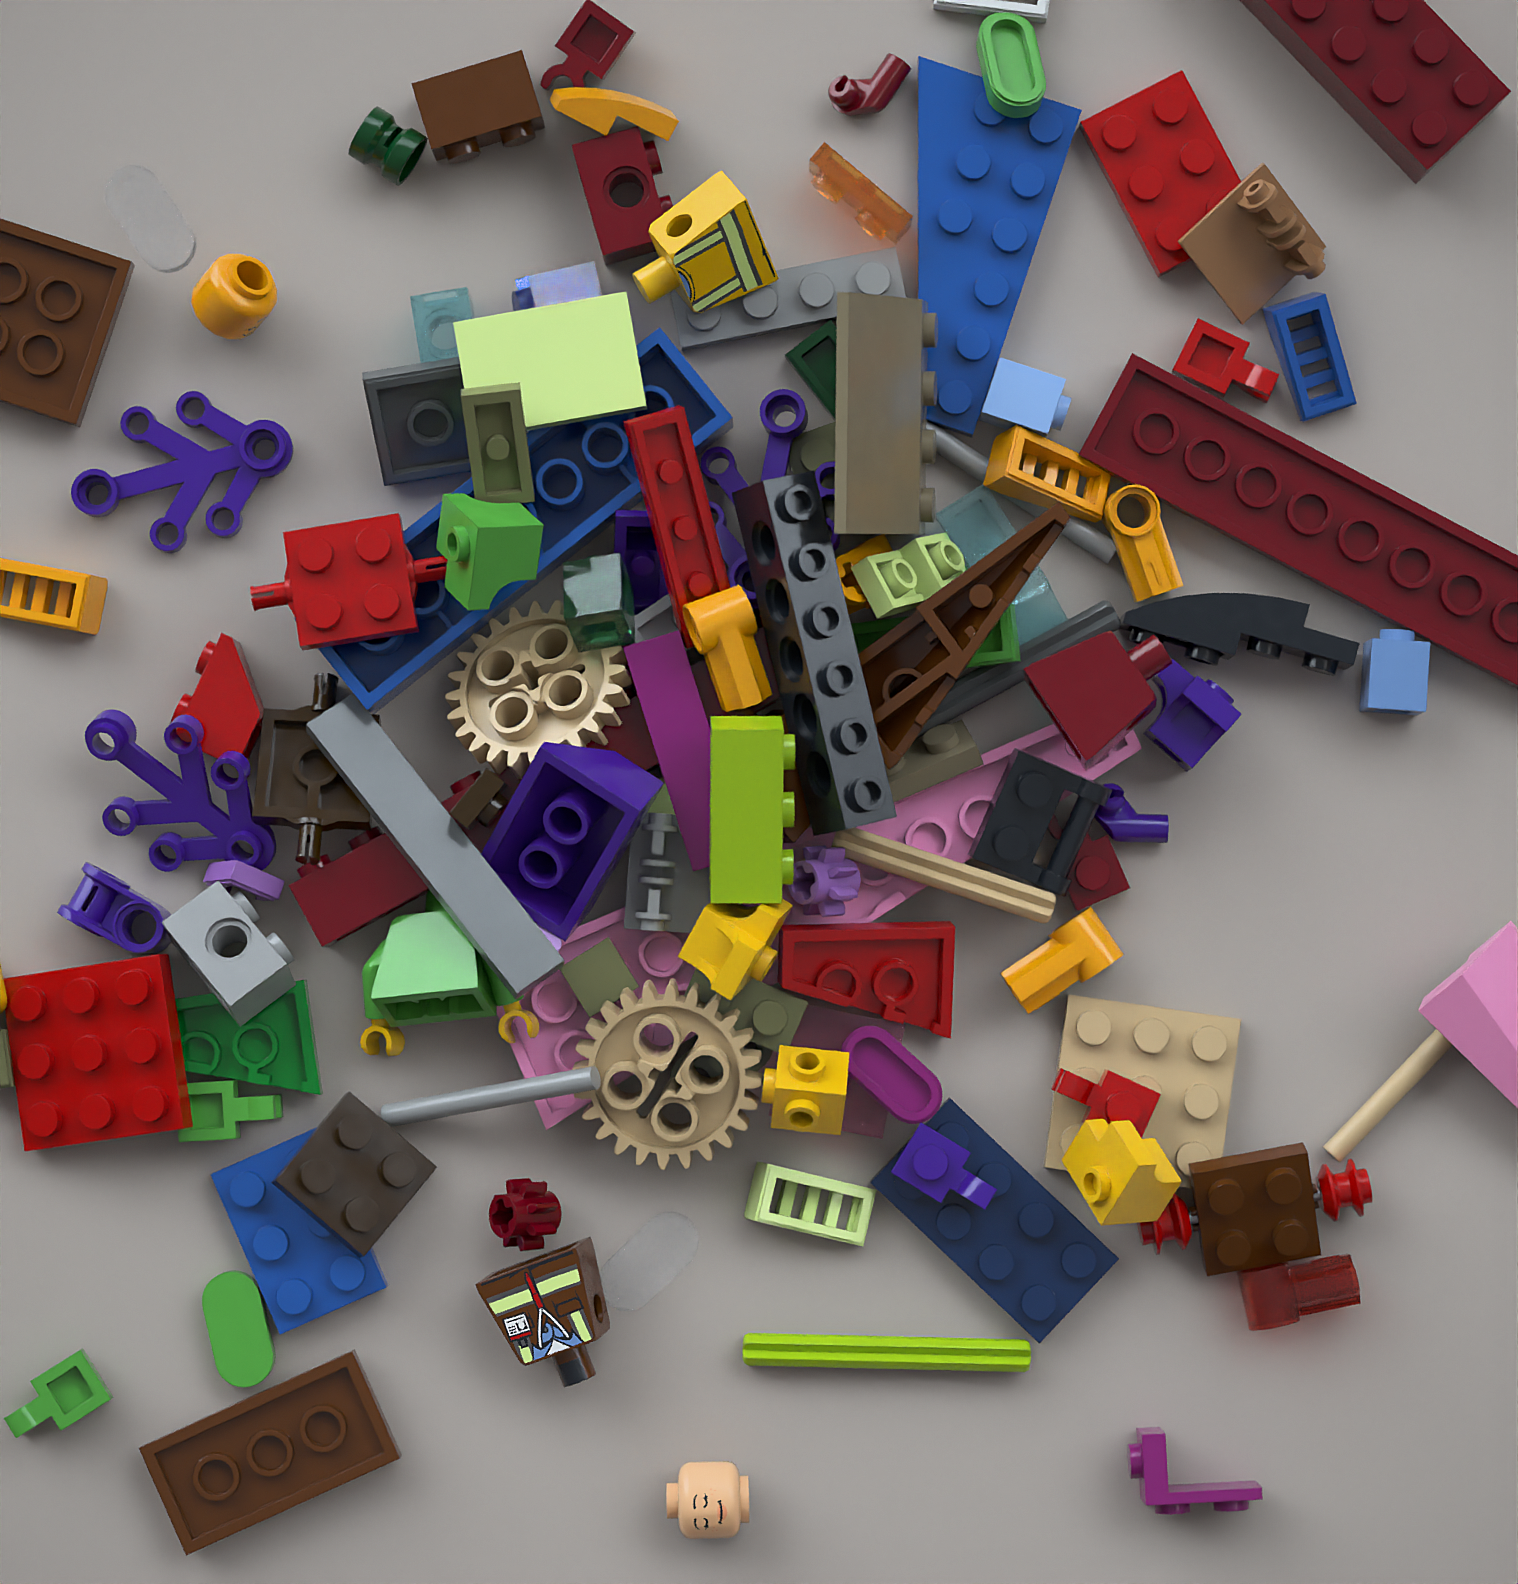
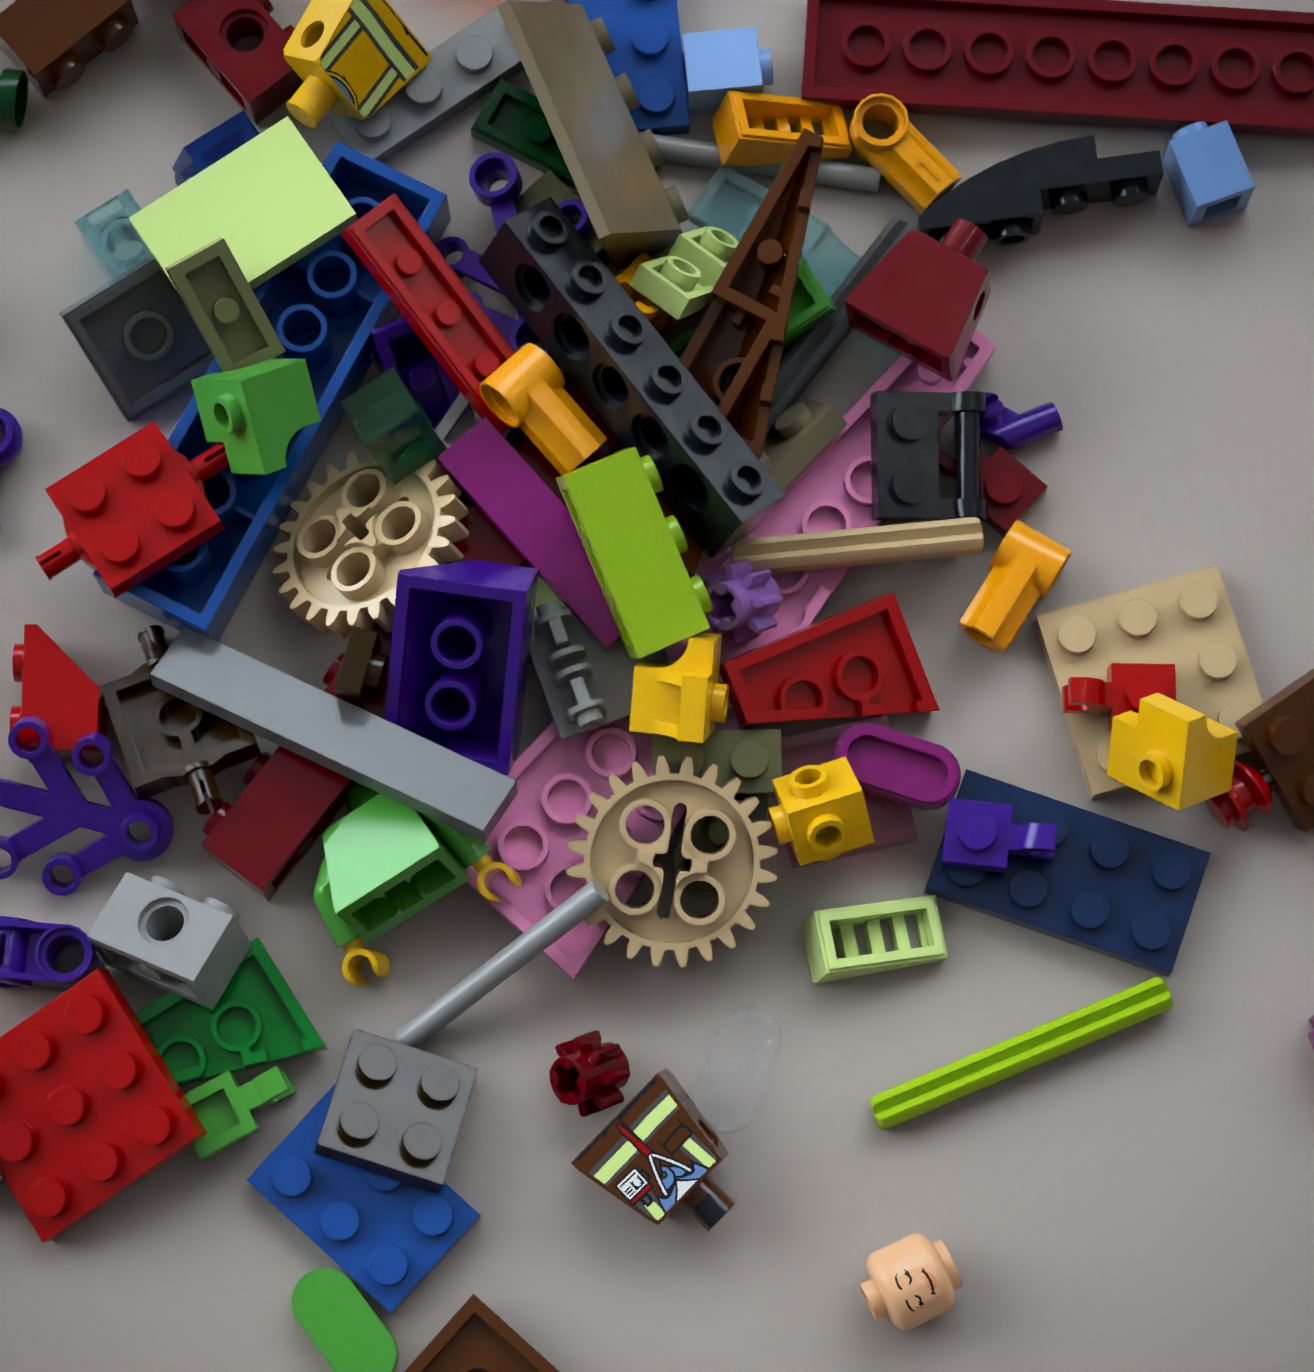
camera: 25 degrees left, 10 degrees down
(245, 877) = (154, 860): medium lavender tile -> none
(598, 976) = (556, 798): olive tile -> none
(1190, 716) = (1027, 294): dark purple brick -> none

